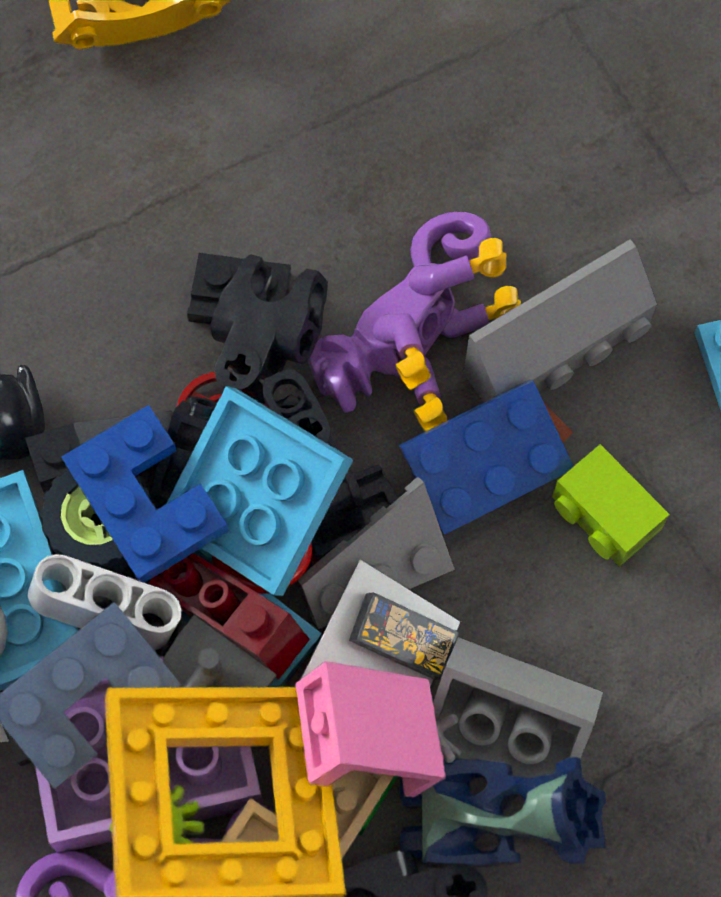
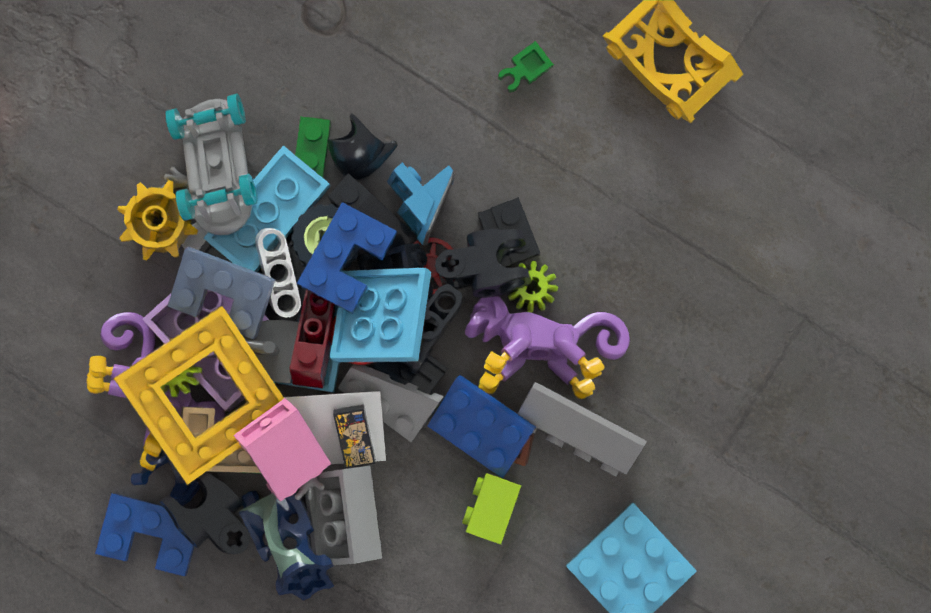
camera: 60 degrees right, 15 degrees up
(30, 151) = (528, 64): none -> green plate
(123, 368) = (420, 203): none -> dark azure piece
(348, 296) = (542, 286): none -> lime gear

